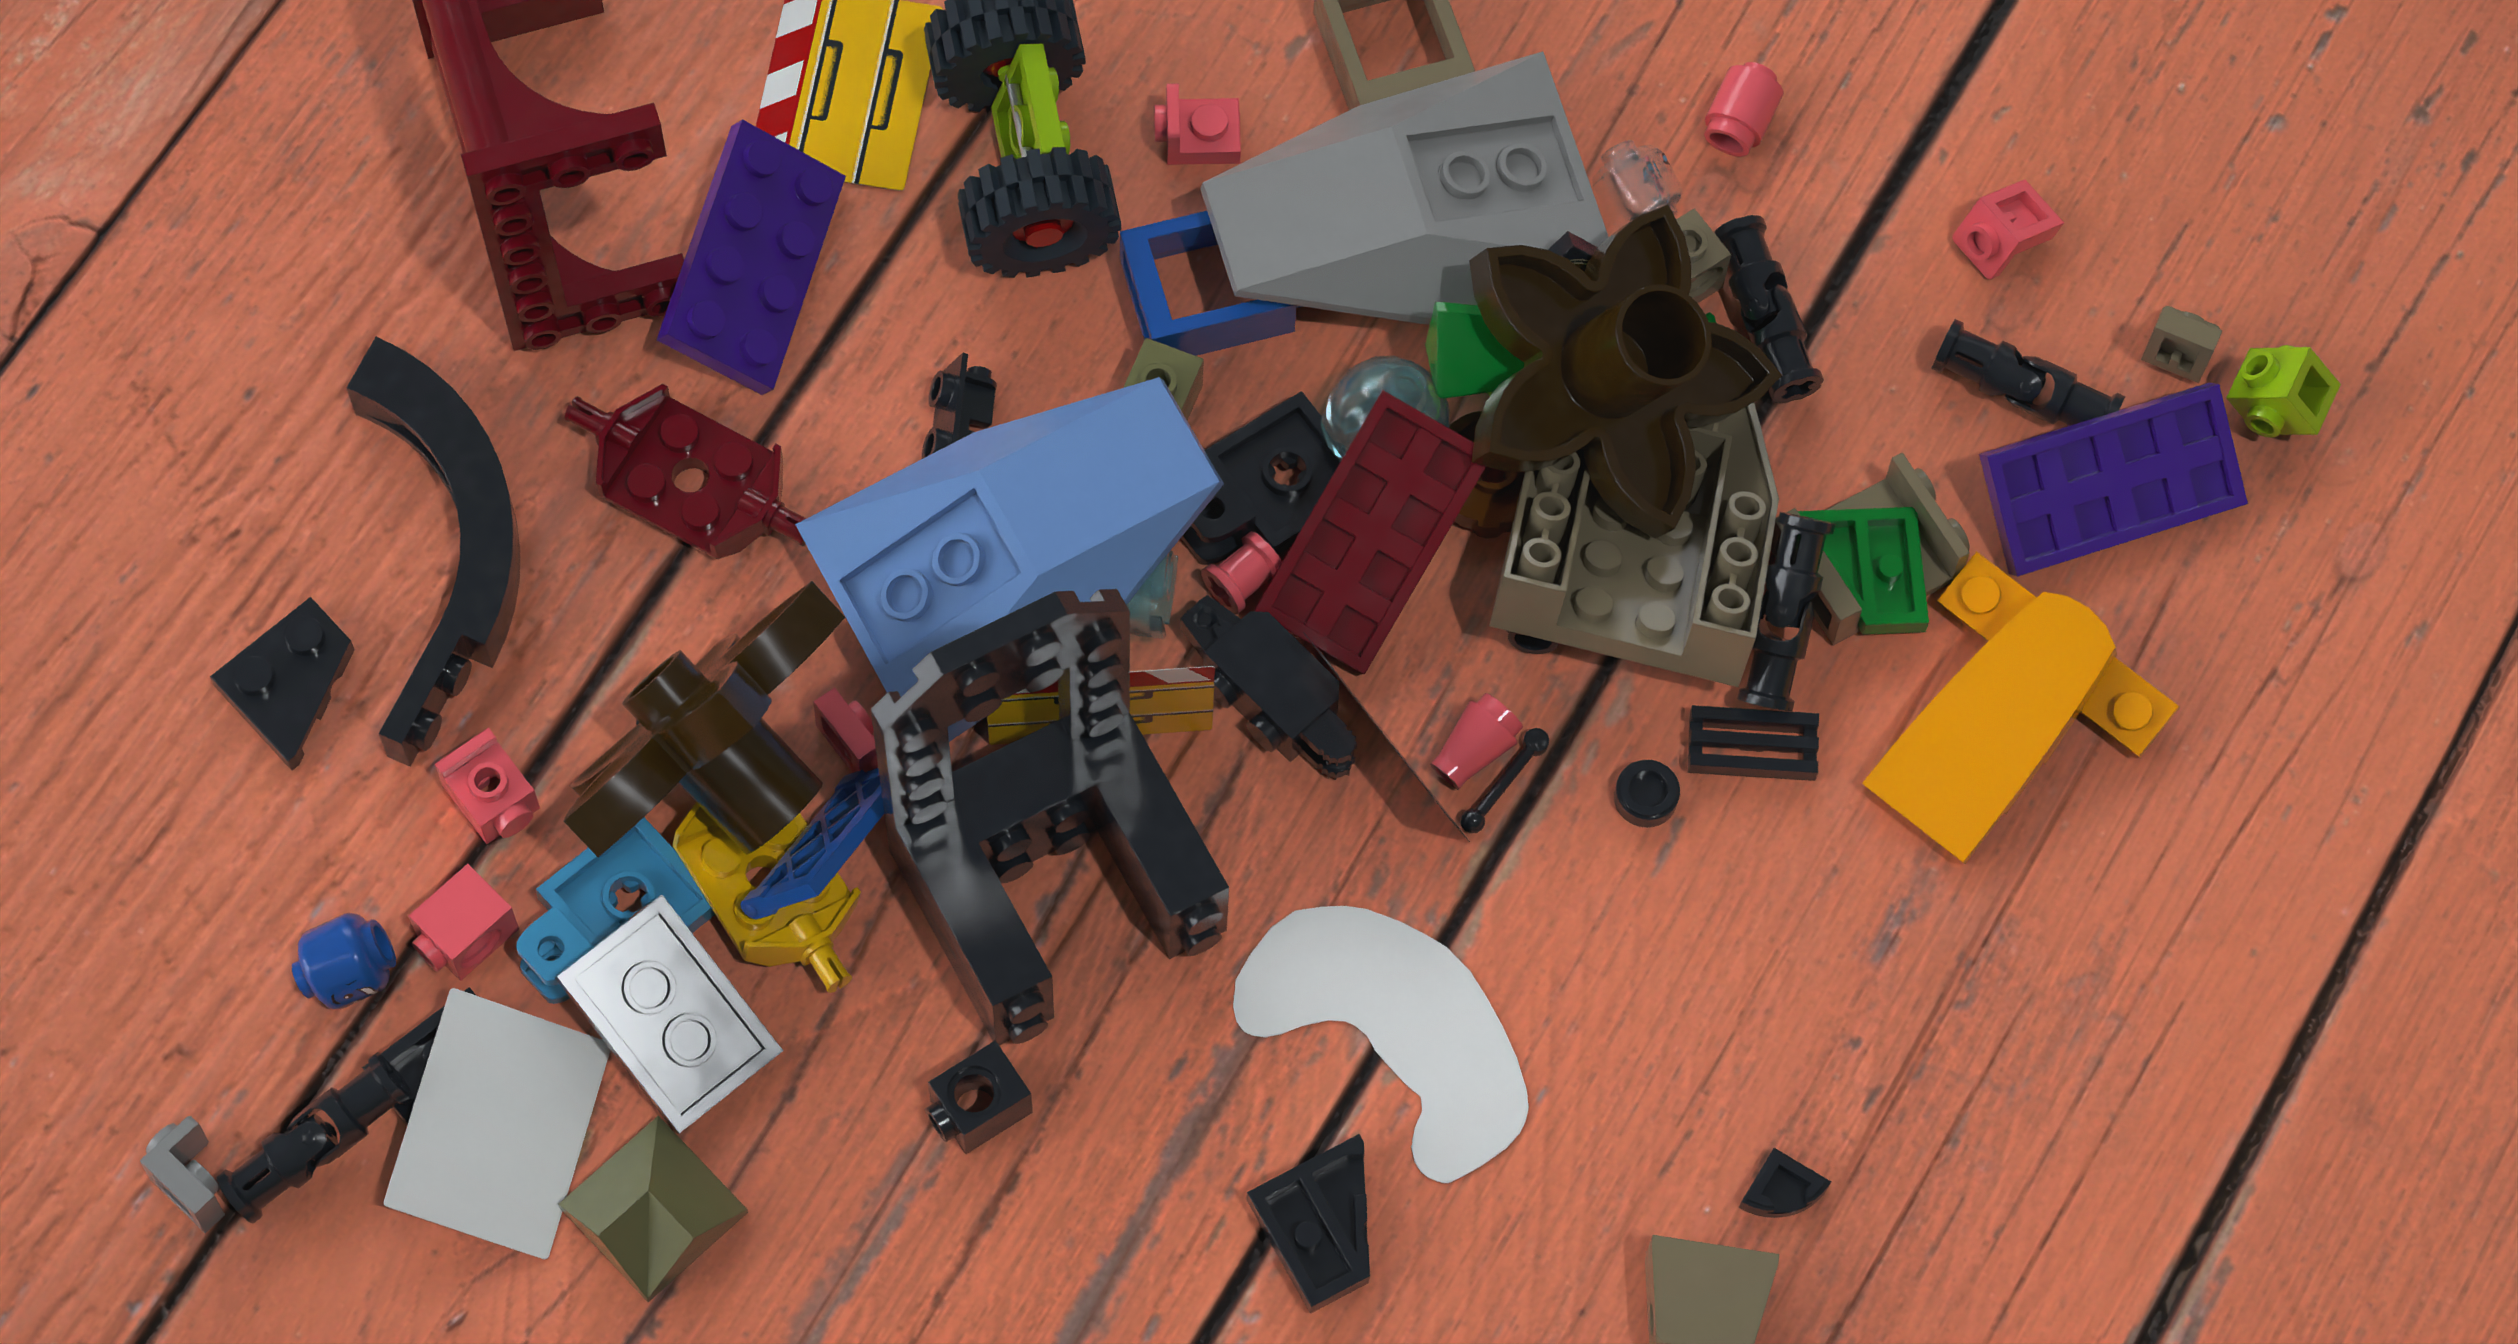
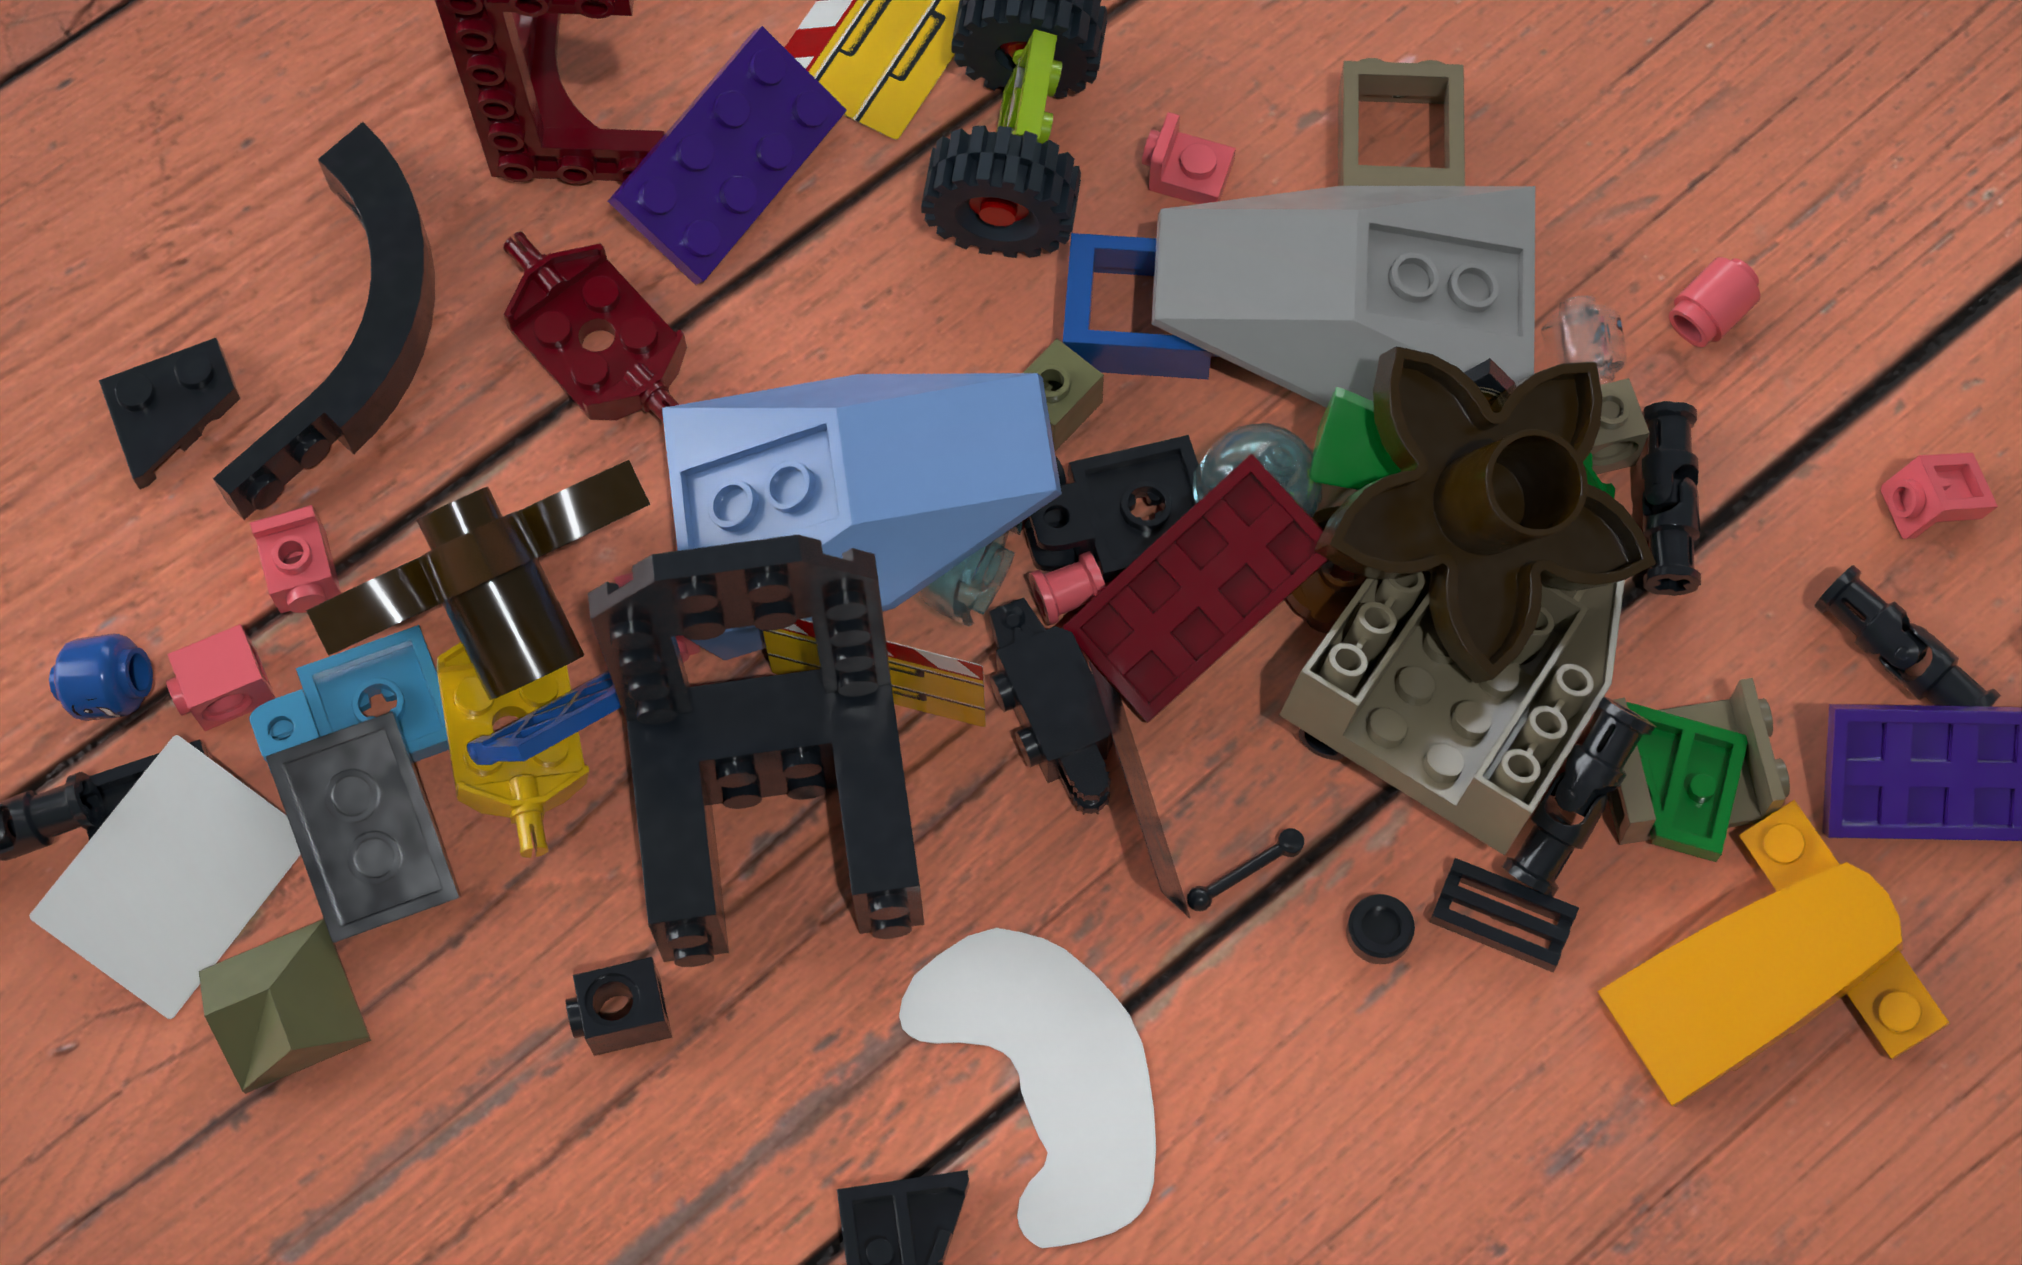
camera: 25 degrees right, 0 degrees up
(959, 399) = (869, 344): black hinge -> none
(1477, 739) = (1230, 822): coral cone -> none

